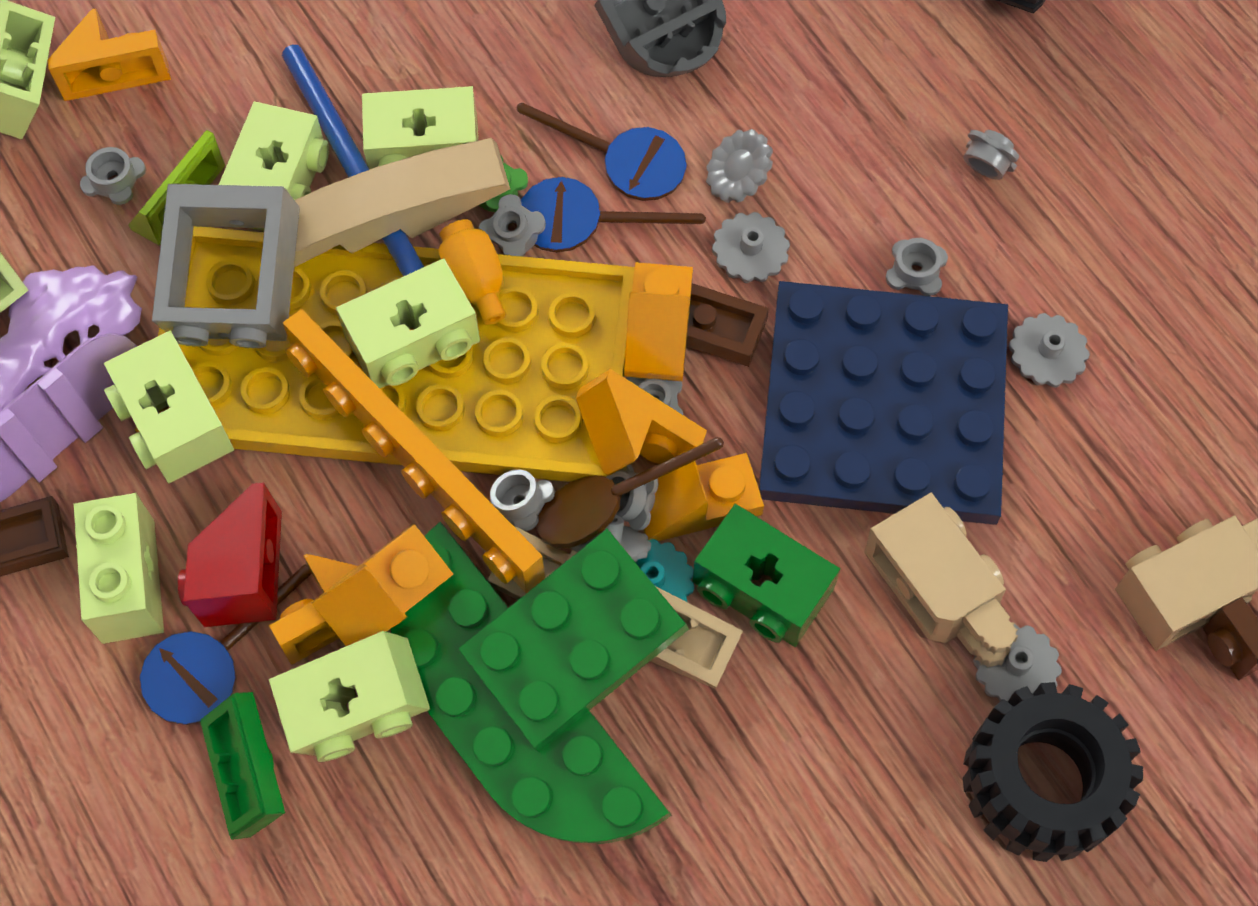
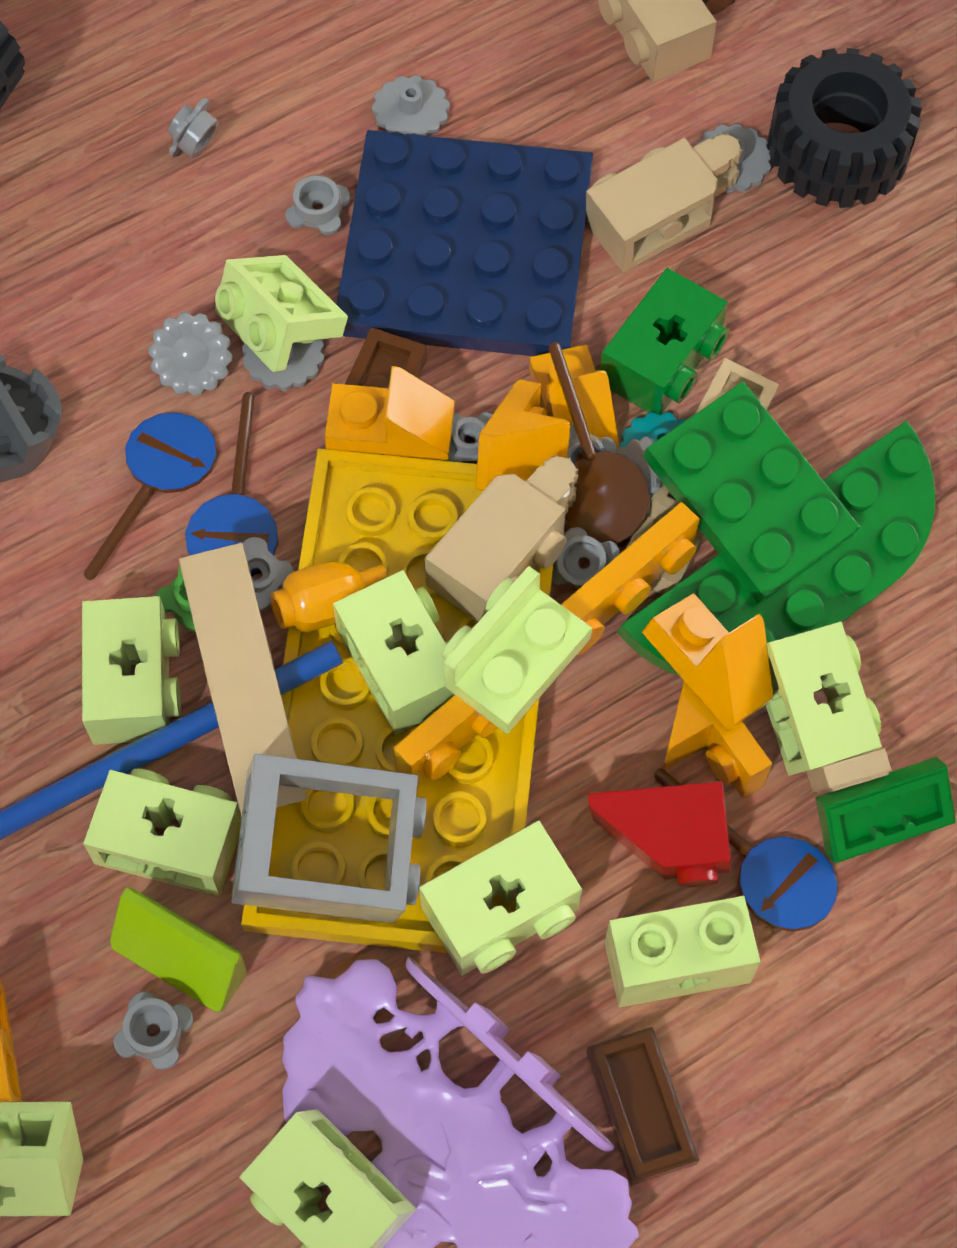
camera: 90 degrees left, 0 degrees up
(272, 734) = (849, 771): none -> tan tile
(378, 395) = (513, 651): none -> yellowish green bracket
(519, 410) = (502, 535): none -> tan hinge
(790, 231) = (273, 305): none -> yellowish green bracket

